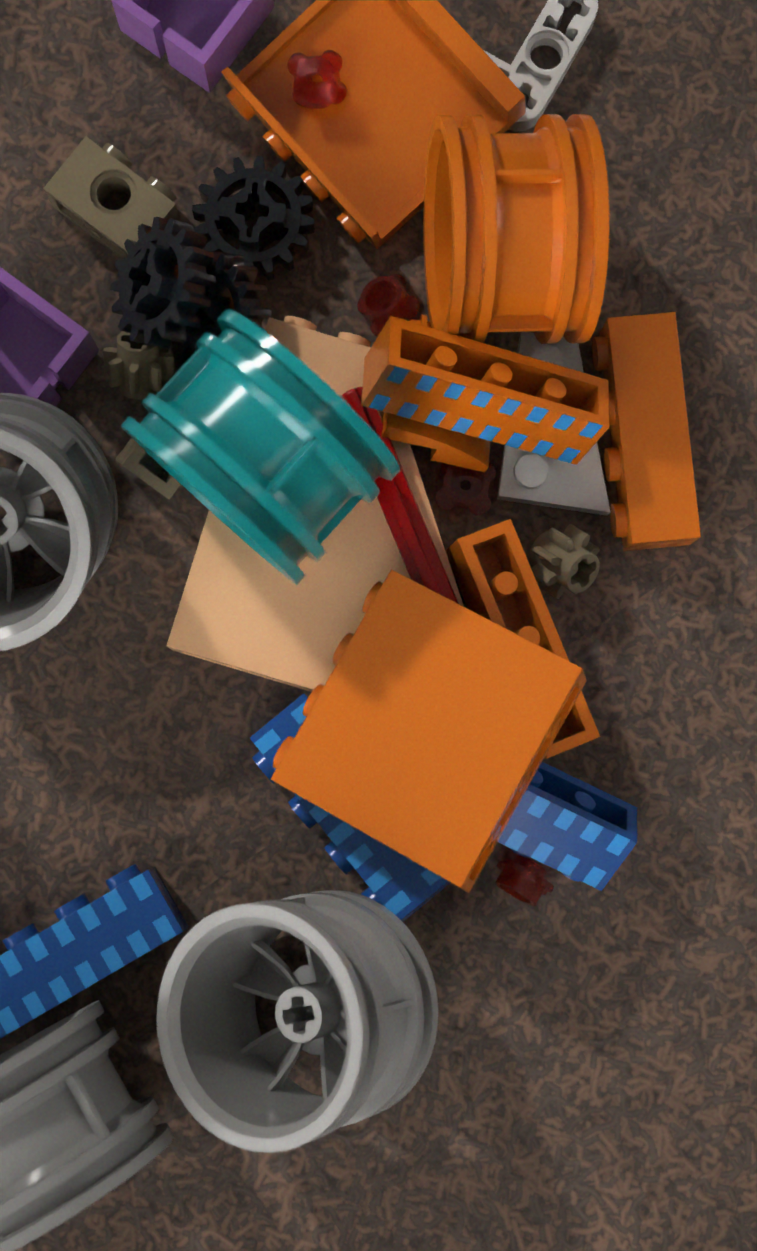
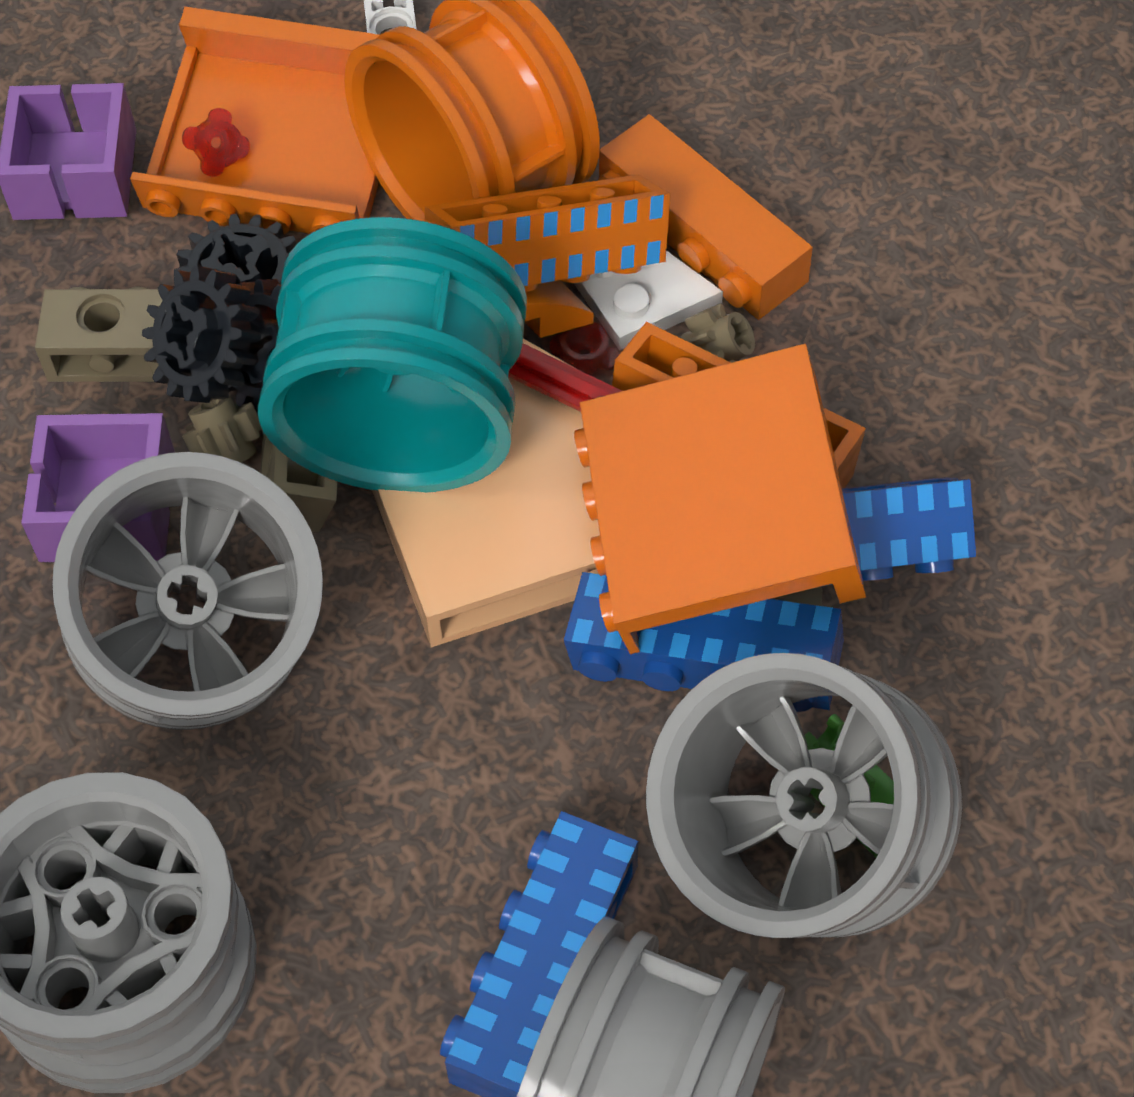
camera: 25 degrees left, 25 degrees down
(523, 879) = (902, 603): clear red plate -> none

